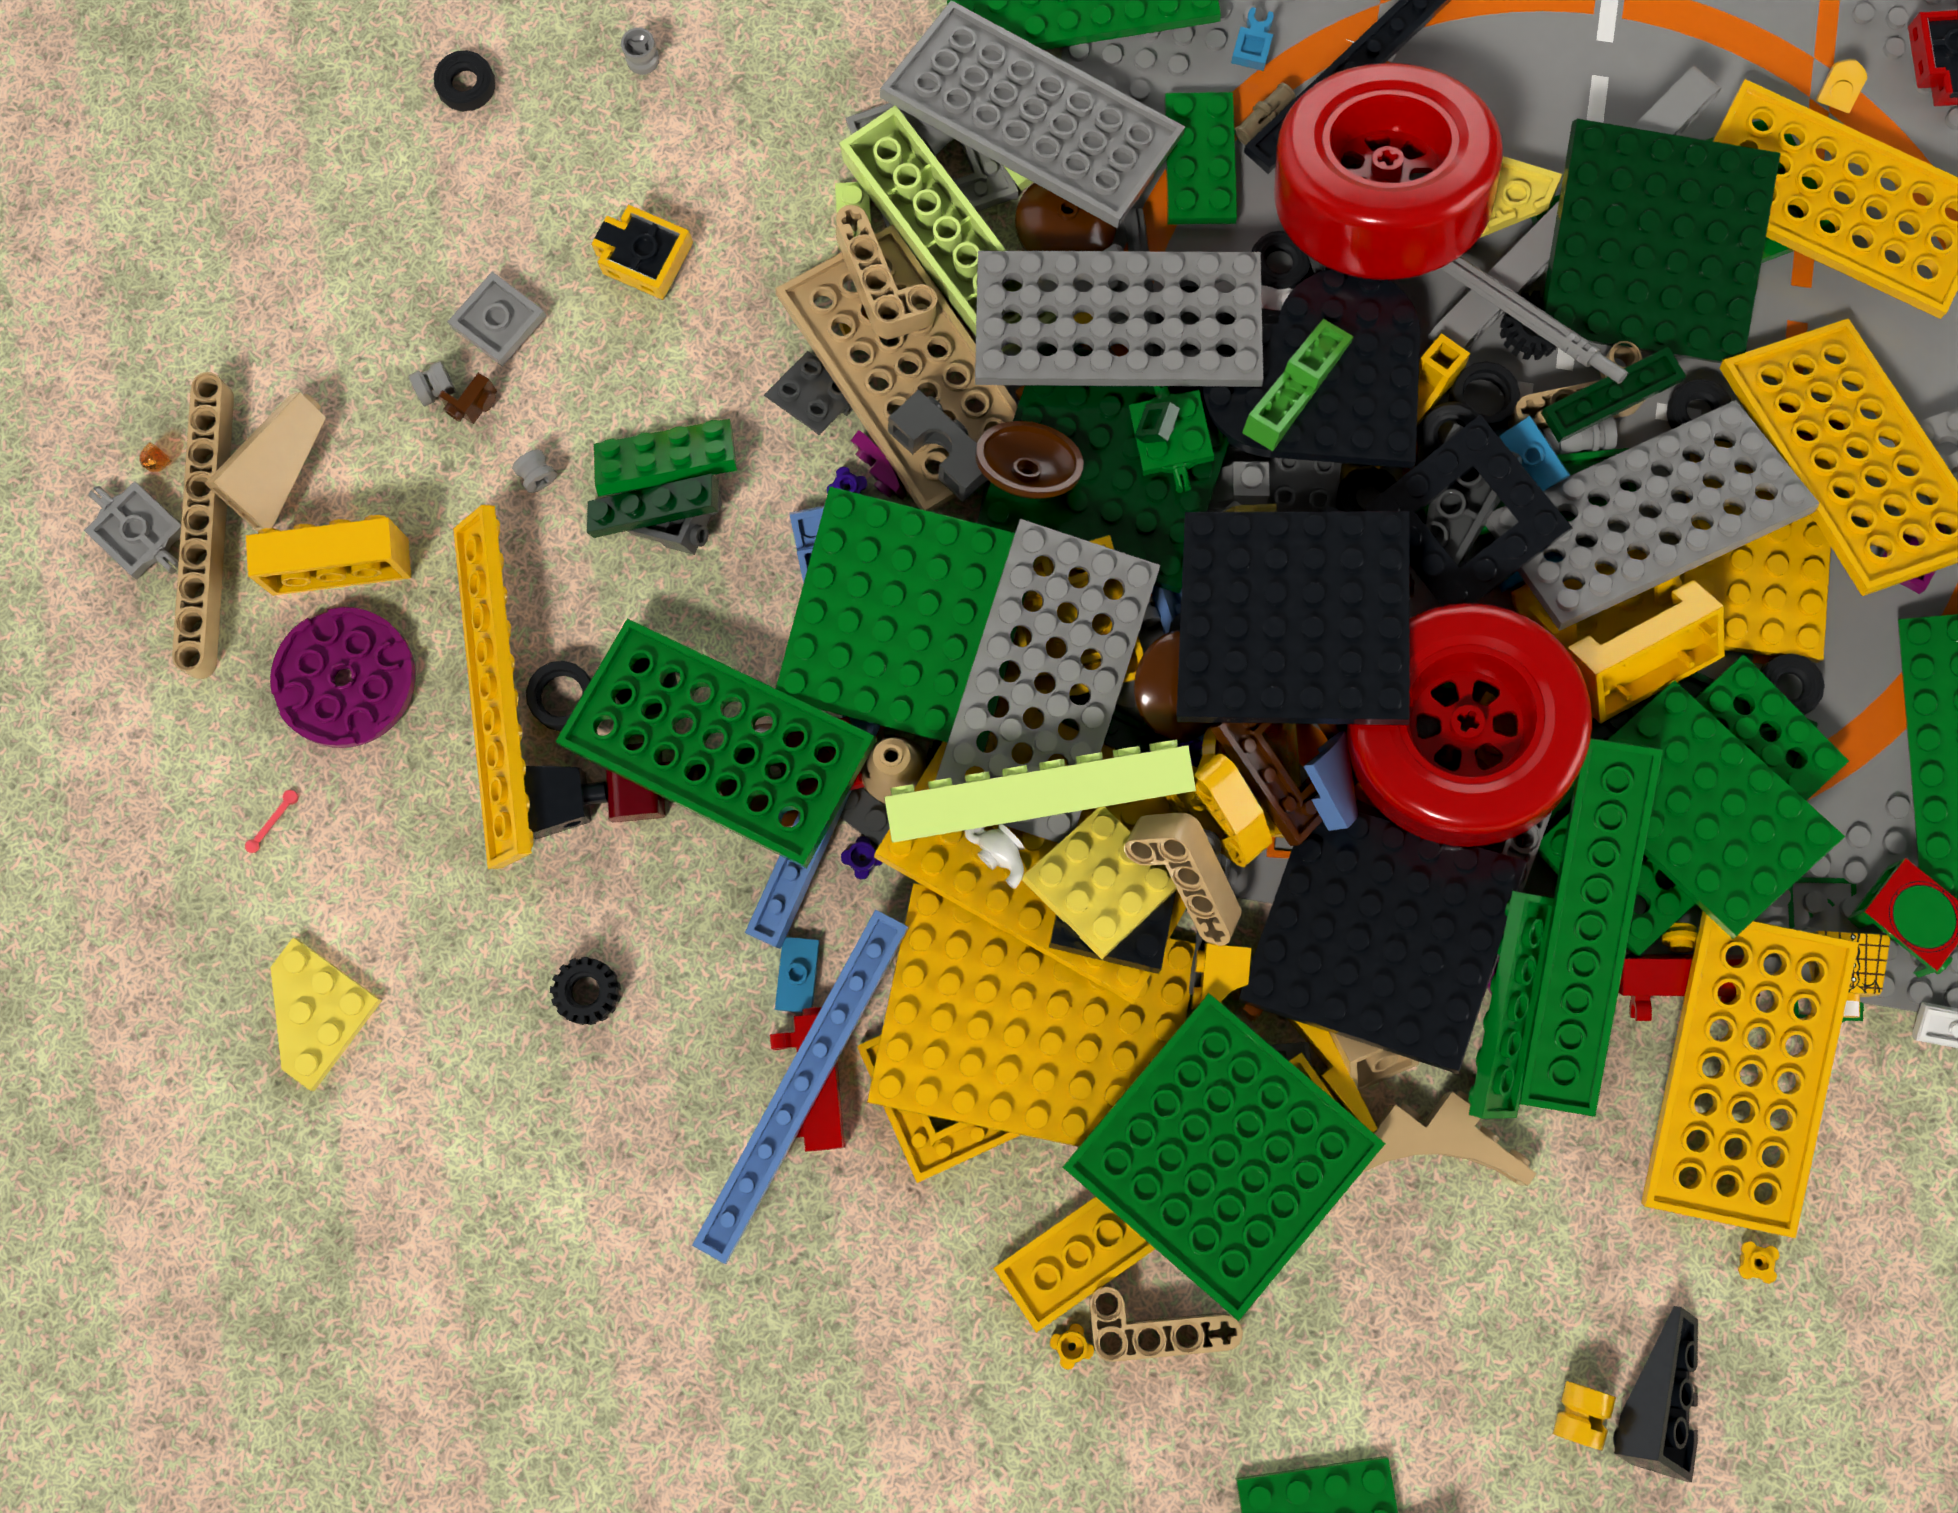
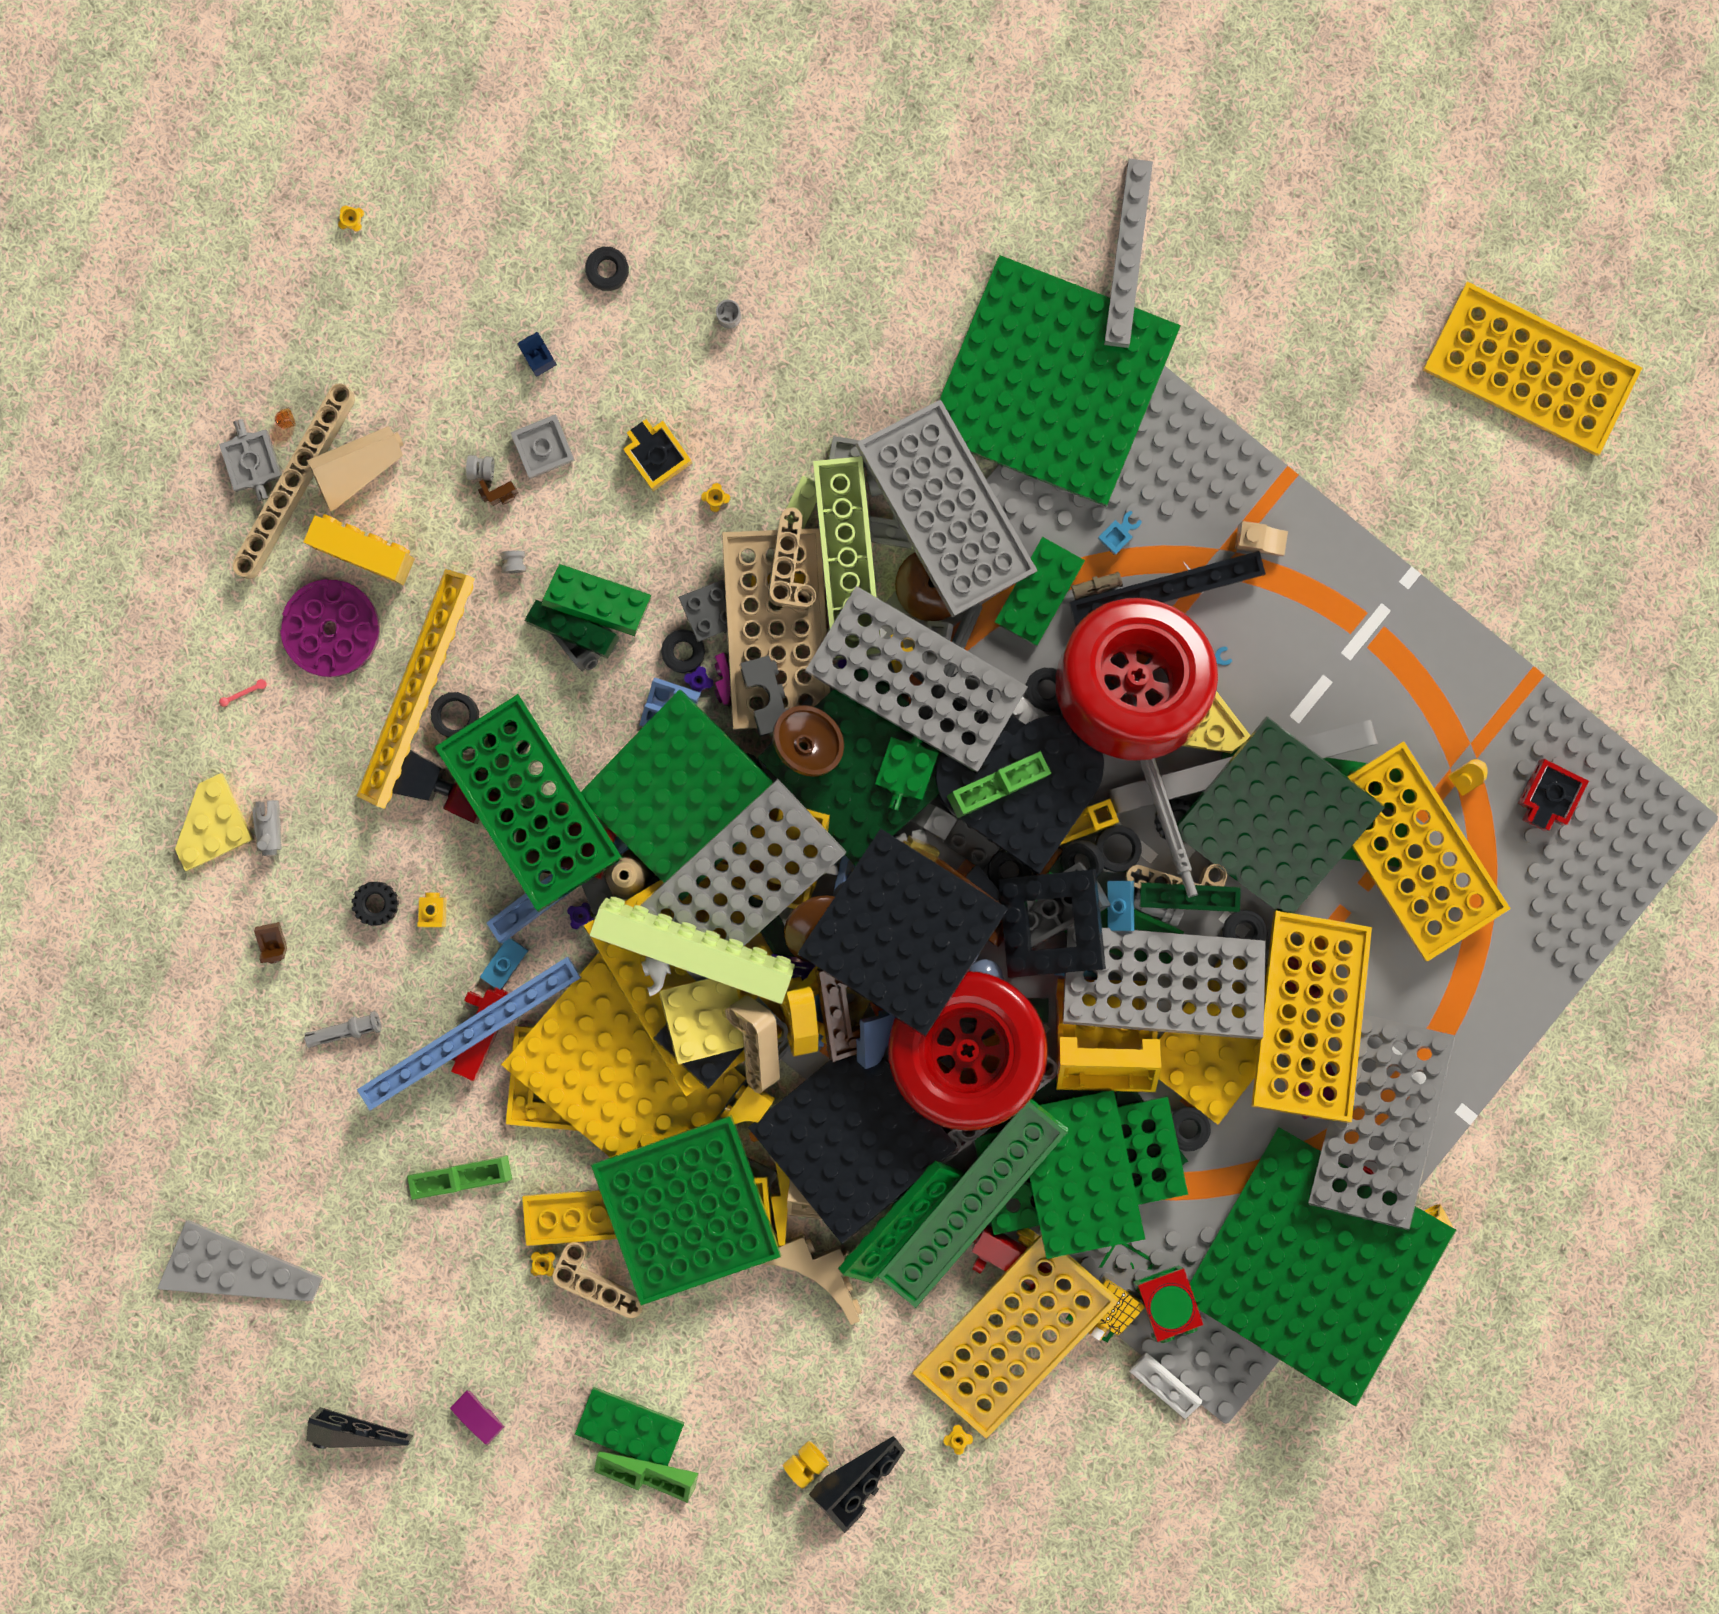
camera: 25 degrees right, 10 degrees up
(111, 181) = (345, 213): none -> yellow plate
(391, 971) = (267, 827): none -> light grey piece
(430, 216) = (537, 354): none -> dark blue bracket
(473, 1119) = (271, 943): none -> reddish brown bracket
(645, 1170) = (353, 1028): none -> light grey pin
(677, 964) = (438, 918): none -> yellow brick
(737, 258) = (723, 497): none -> yellow plate
(794, 447) = (668, 651): none -> black tyre
(894, 1293) = (460, 1177): none -> bright green slope
(1157, 422) = (897, 763): dark green plate -> none

